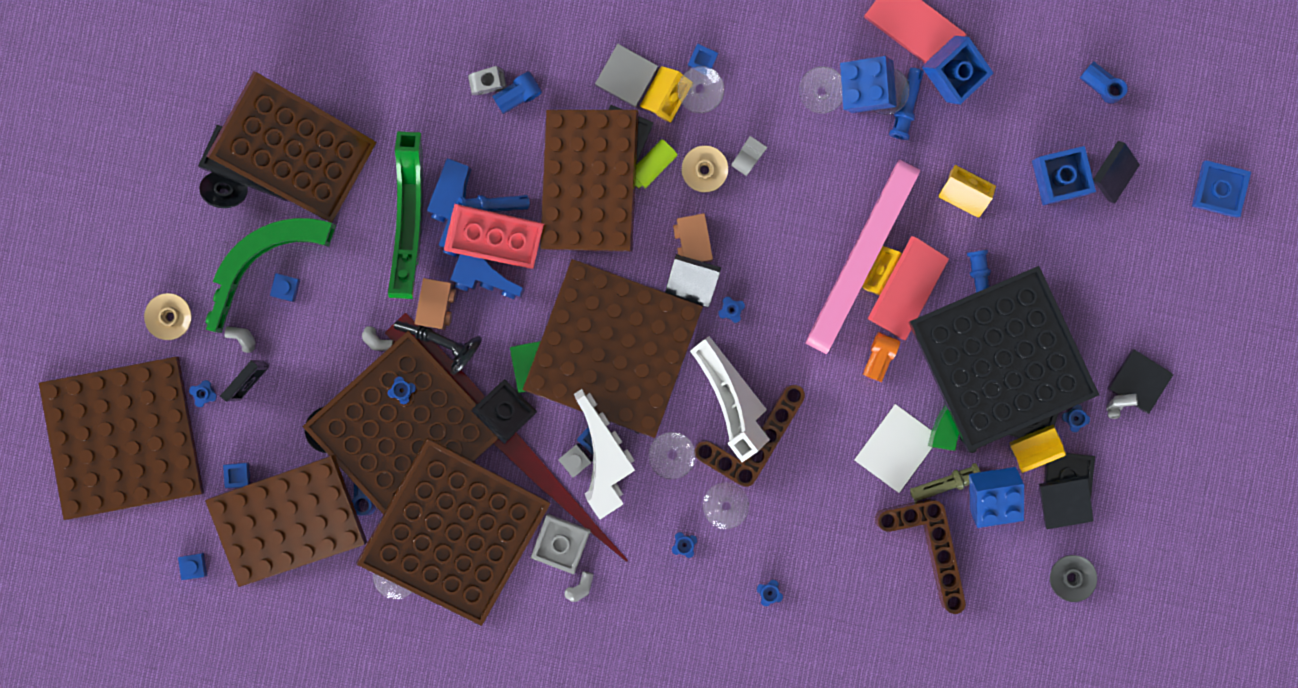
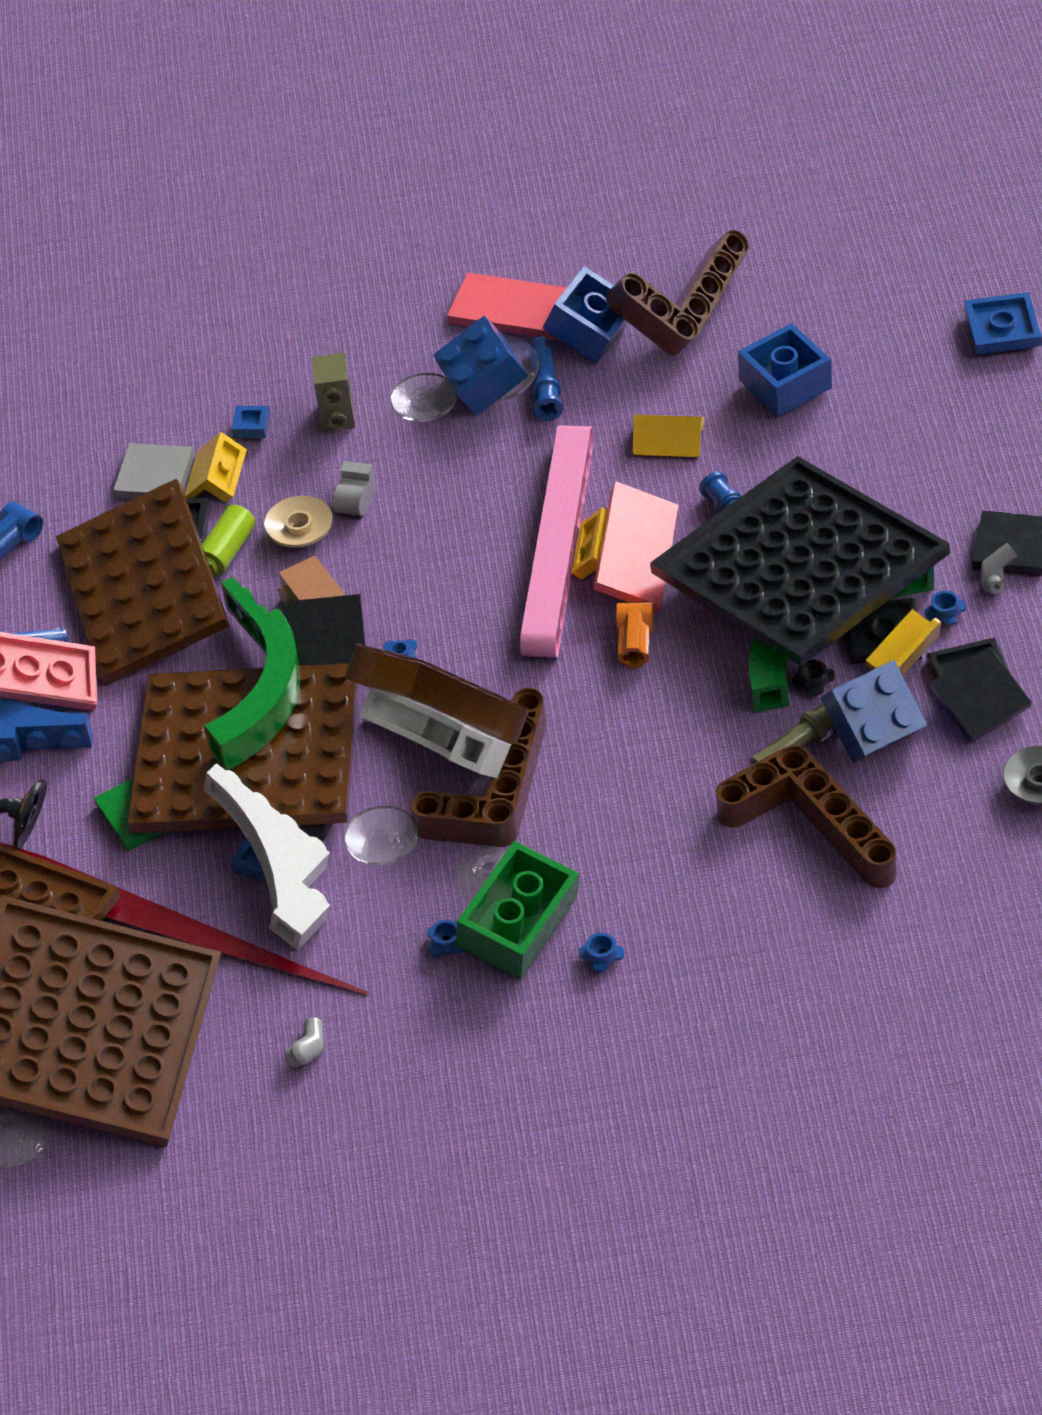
camera: 20 degrees left, 40 degrees down
(504, 411) = (110, 865): black tile -> none
(560, 543) = (256, 1001): light grey tile -> none
(575, 460) = (238, 887): light grey brick -> none
(628, 343) = (270, 703): none -> green arch
(710, 95) = (261, 434): clear dish -> none
(730, 554) = (517, 909): none -> green brick
(748, 372) = (438, 690): none -> reddish brown beam
(764, 67) = (333, 391): none -> olive brick
(896, 448) = (709, 731): white sticker -> none
(1015, 99) = (672, 324): none -> reddish brown beam
(1101, 80) = (802, 276): blue piece -> none
(1116, 171) = (852, 343): black tile -> none

